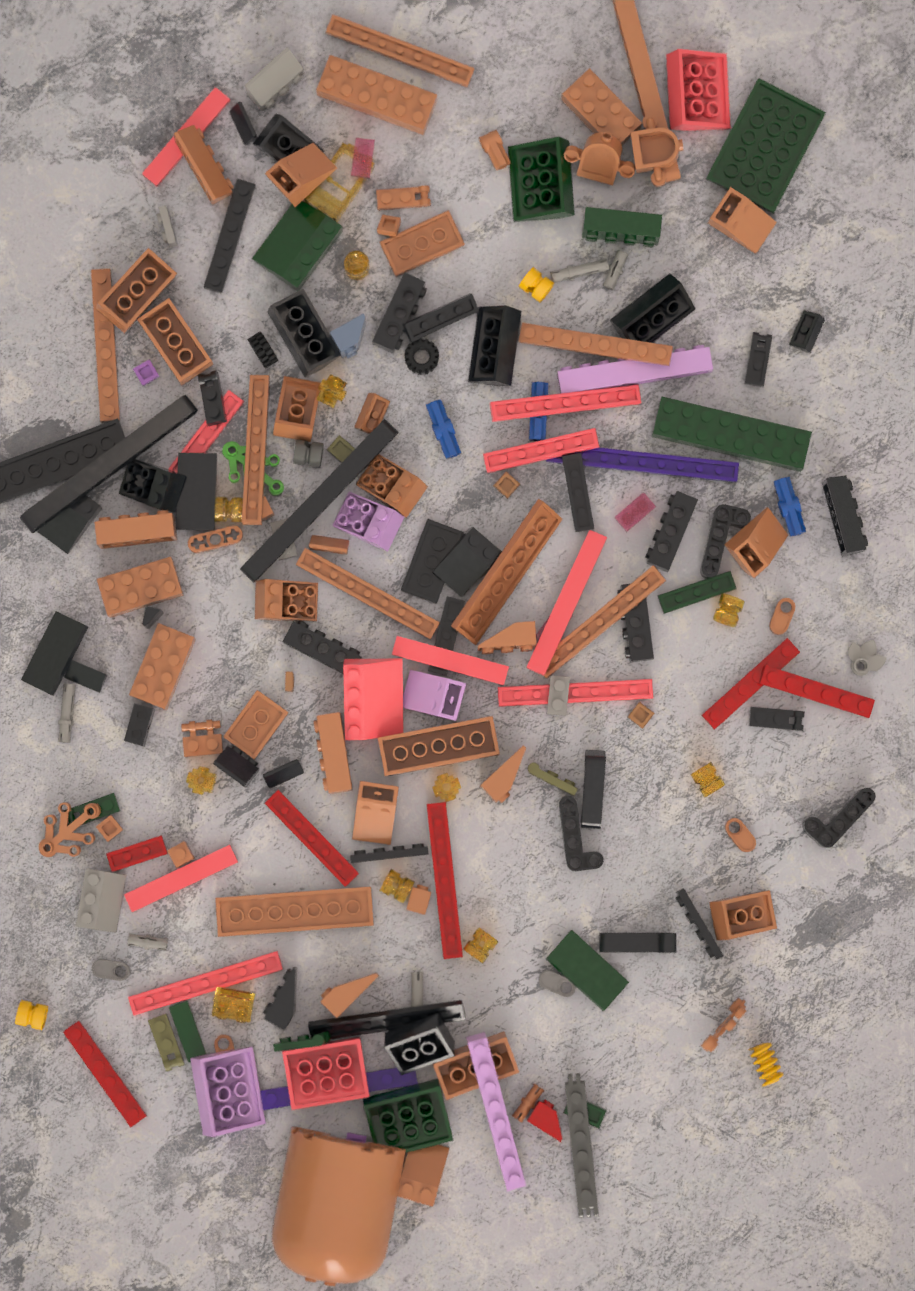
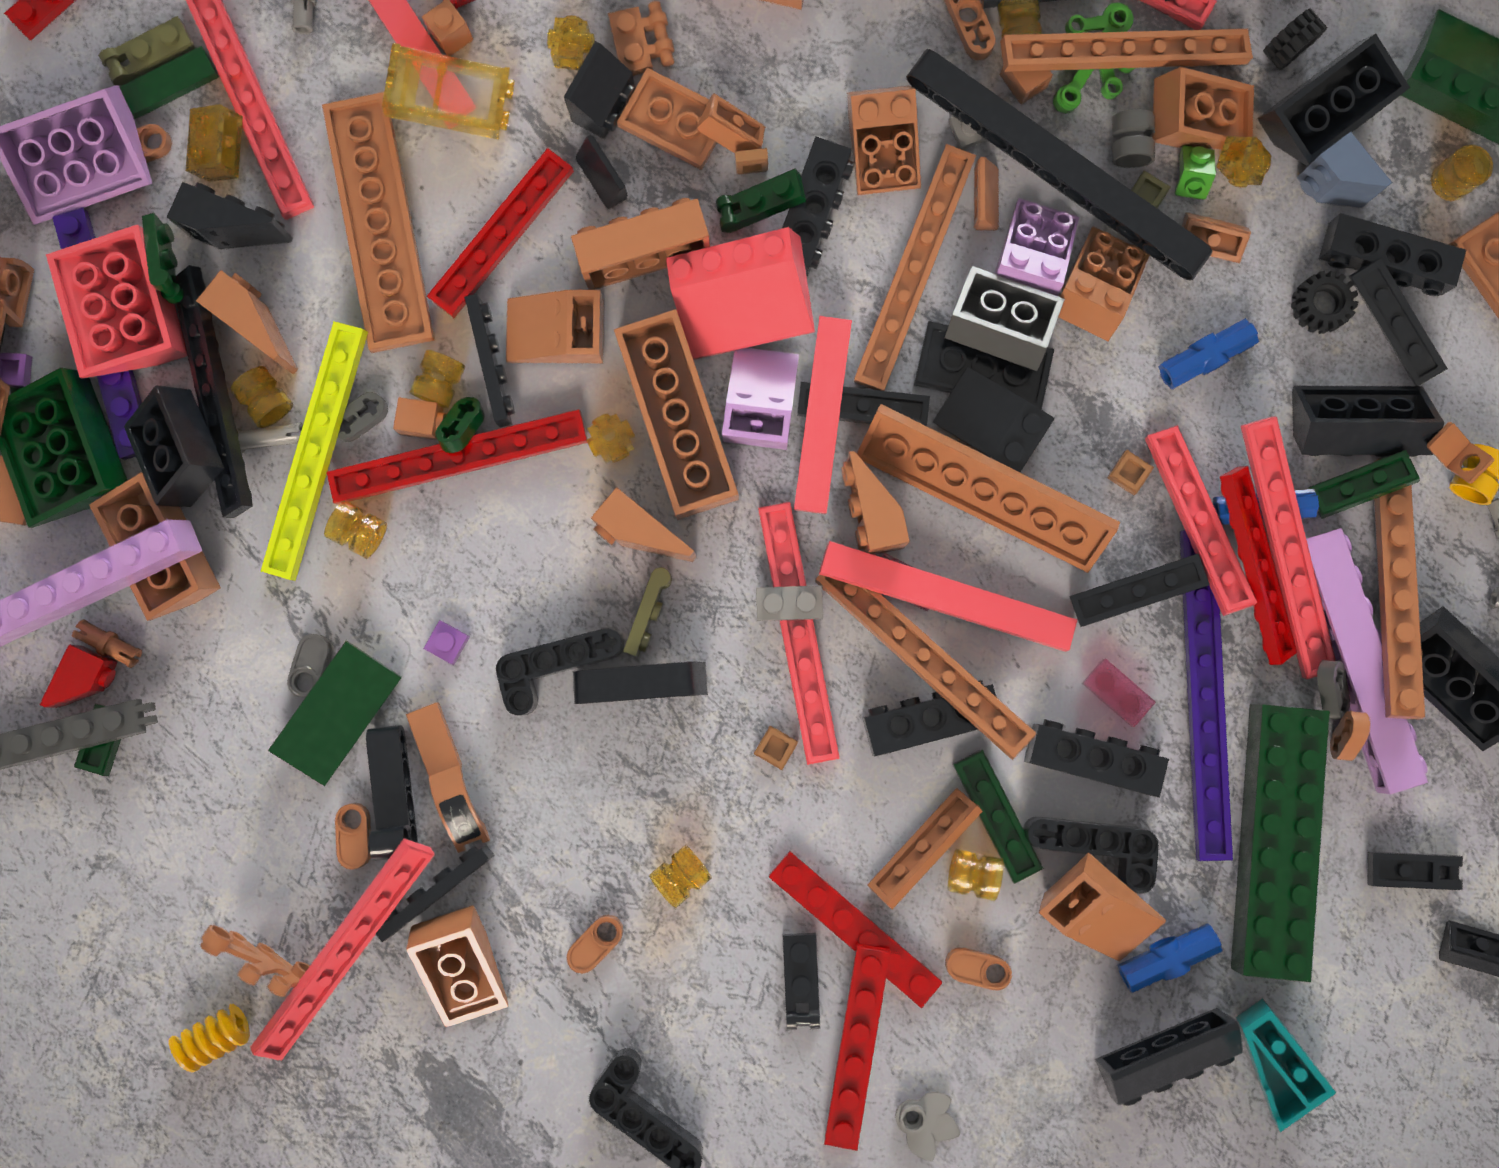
camera: 90 degrees right, 0 degrees up
(223, 857) = (447, 92): none -> clear yellow door
(267, 690) = (730, 126): none -> nougat slope
(316, 679) = (760, 201): none -> dark green plate
(332, 419) = (1196, 172): none -> bright green bracket
(393, 992) = (264, 400): none -> clear yellow wheel
(407, 940) = (365, 422): none -> dark grey beam
(408, 546) = (1004, 318): none -> dark grey brick
(428, 872) = (463, 426): none -> dark green beam
(430, 964) = (314, 451): none -> neon yellow plate
(520, 299) = (1454, 448): none -> nougat bracket
(533, 353) = (1365, 484): none -> dark green tile
(553, 900) = (446, 642): none -> medium lavender plate
(573, 422) = (1258, 564): none -> red plate
(632, 909) = (446, 776): none -> nougat piece
(649, 390) = (1333, 688): none -> dark grey beam
(664, 969) = (352, 843): none -> nougat piece
(677, 385) = (1350, 735): none -> nougat beam
(709, 637) = (924, 848): none -> nougat plate
(725, 978) = (342, 950): none -> coral tile
(856, 453) = (1283, 1068): none -> teal wedge

